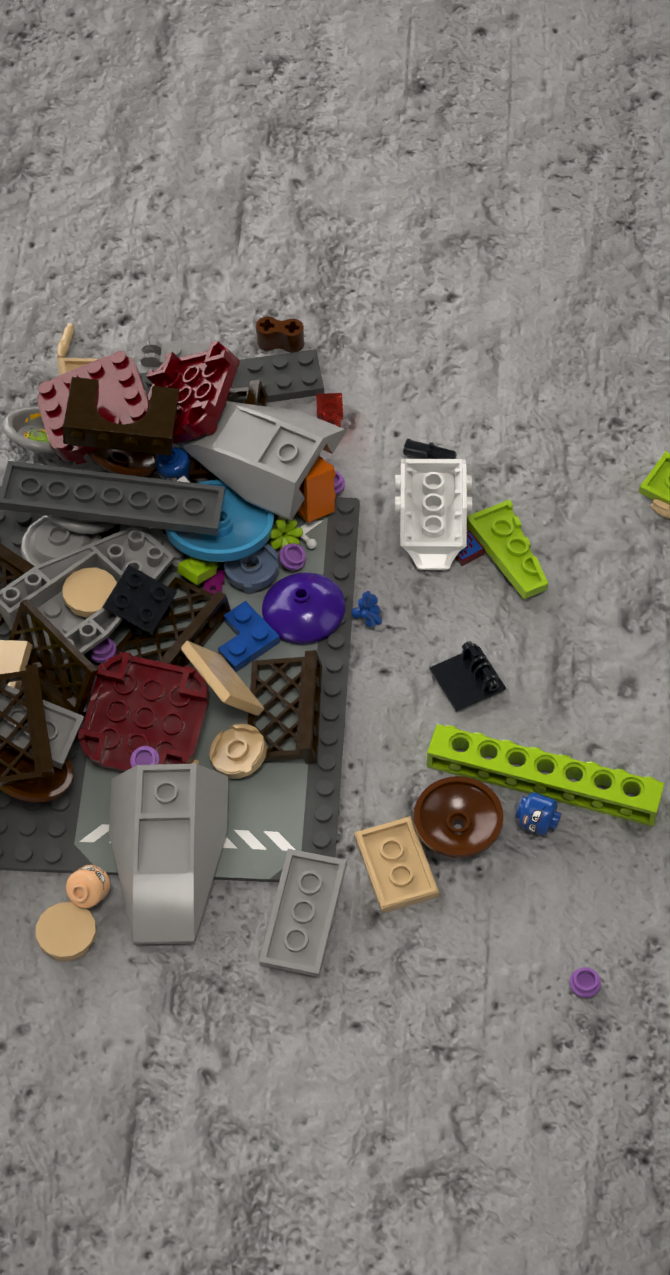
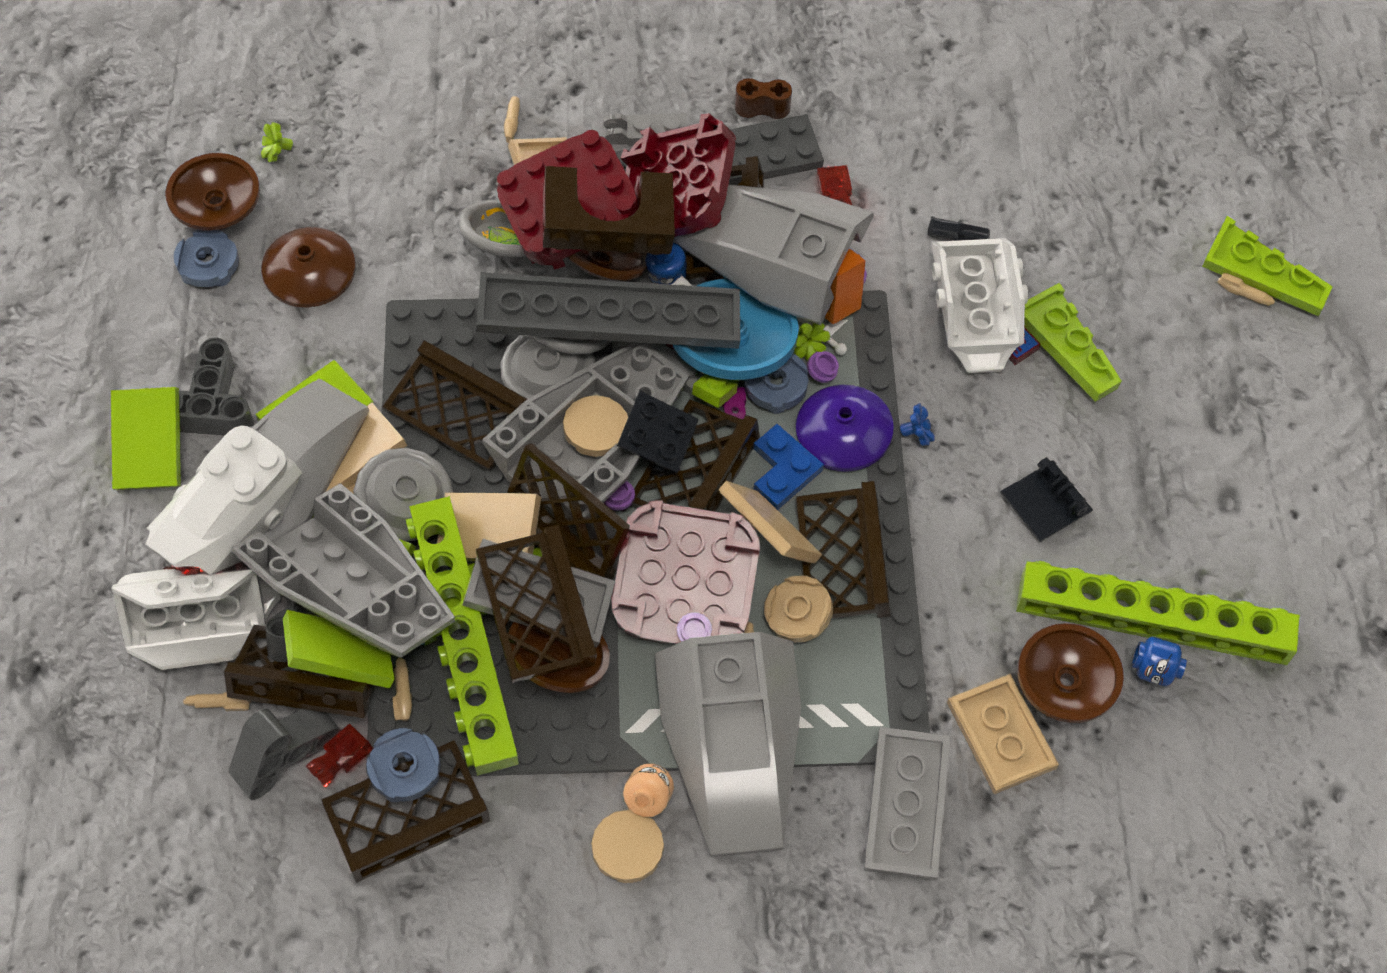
camera: 10 degrees left, 5 degrees up
(585, 982) = (1245, 862): medium lavender plate -> none

